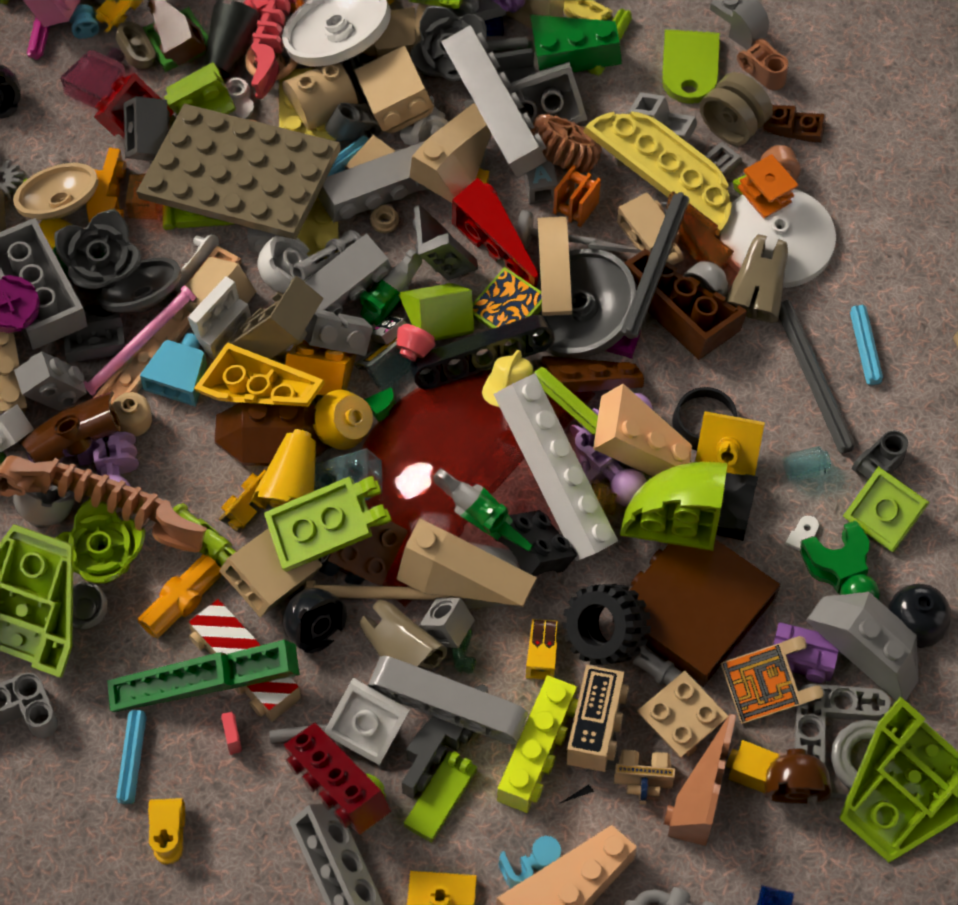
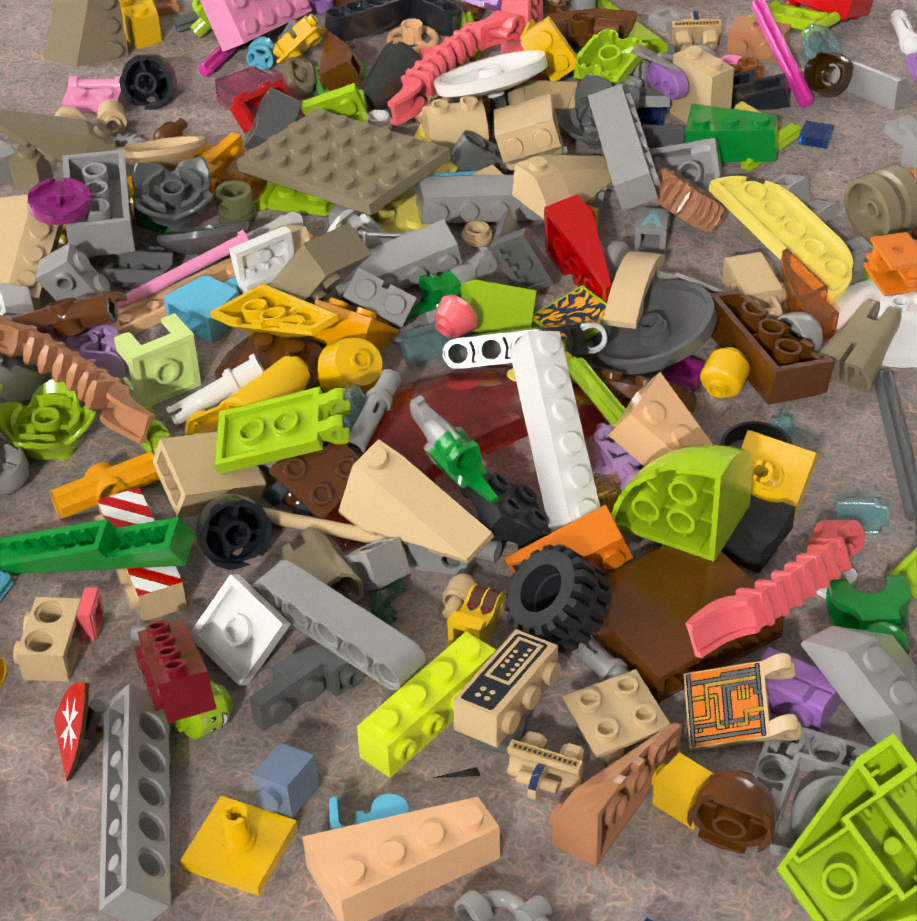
camera: 20 degrees right, 20 degrees down
(40, 152) = (170, 129): none -> reddish brown cylinder
(133, 413) = (141, 322): tan head -> none
(149, 236) = (233, 204): none -> olive piece
(176, 464) = (160, 366): none -> yellowish green panel
(214, 765) = (49, 640): none -> tan brick
(246, 462) = (216, 391): none -> white pin
(272, 843) = (76, 722): none -> shield
(381, 403) = (408, 370): green tile -> none
(387, 457) = (377, 402): none -> light grey pin
(440, 796) = (299, 728): lime hinge -> none
(457, 847) = (285, 780): none -> sand blue brick
(518, 629) = (456, 593): none -> tan cylinder
(583, 199) = (684, 244): orange piece -> none
(611, 563) = (591, 536): none -> orange slope
(646, 15) = (816, 134): none -> clear blue tile
(655, 266) = (740, 299): dark grey axle -> none
(657, 339) = (725, 372): none -> yellow head
(690, 60) = (841, 168): lime tile -> none
(718, 381) = (785, 421): none -> clear light blue plate
(762, 599) = (754, 608): none -> coral piece

